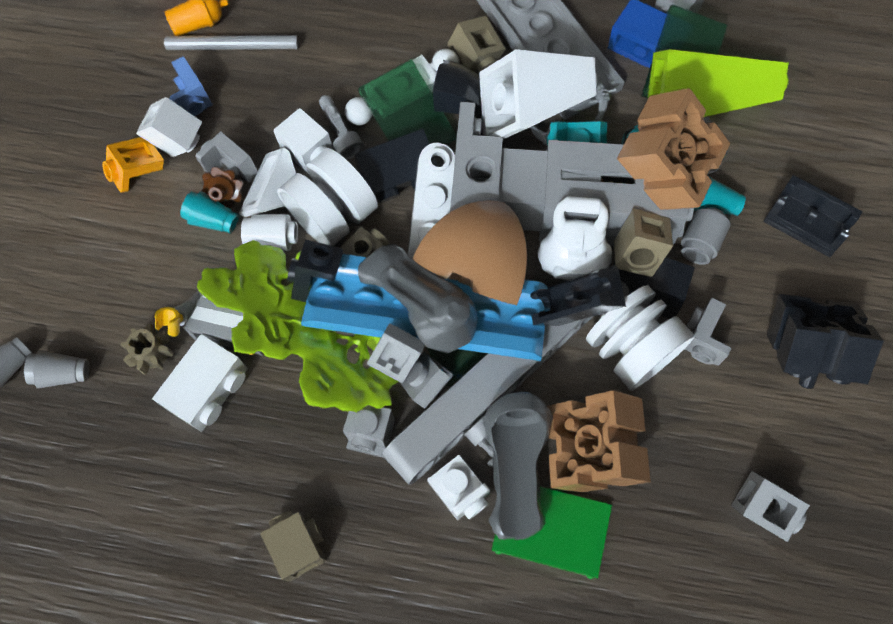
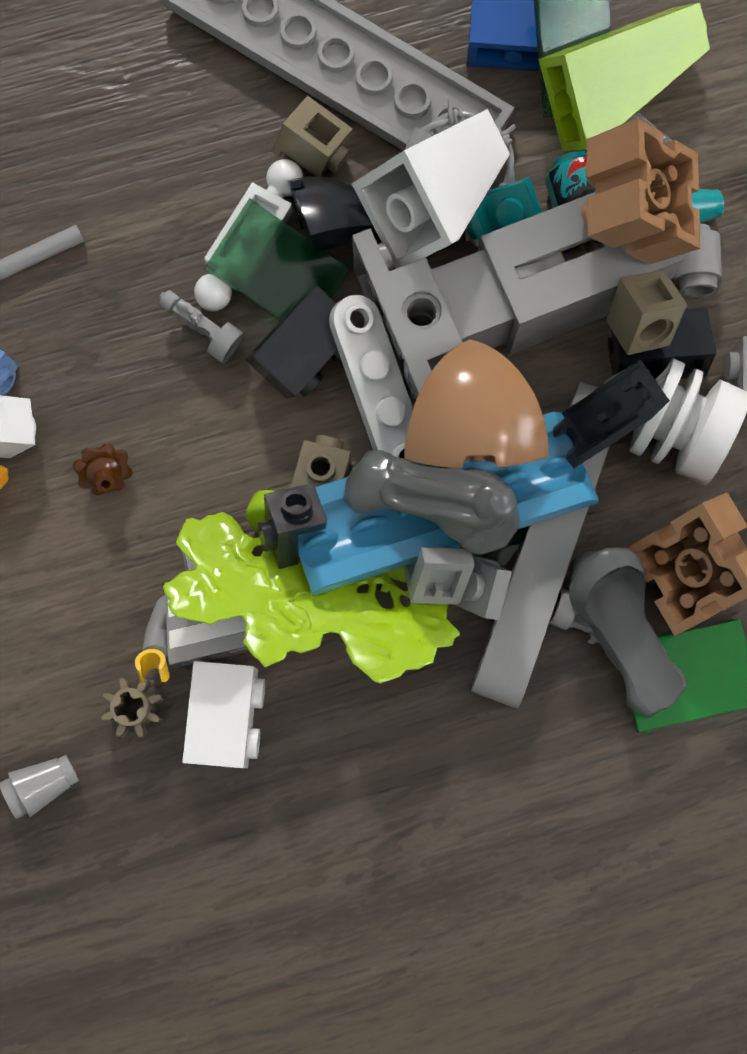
camera: 30 degrees left, 10 degrees up
(206, 213) = (103, 511): teal cone -> none
(224, 152) = (95, 426): light grey bracket -> none
(270, 230) = (194, 497): white brick -> none
(272, 174) = (160, 437): white slope -> none
(294, 544) = (430, 836): dark tan brick -> none
(302, 138) = (170, 363): white brick -> none
(334, 193) = (252, 415): white wheel -> none
(369, 430) = (447, 674): light grey brick -> none
(460, 489) = (573, 685): white bracket -> none
(576, 245) = (569, 350): white piece -> none

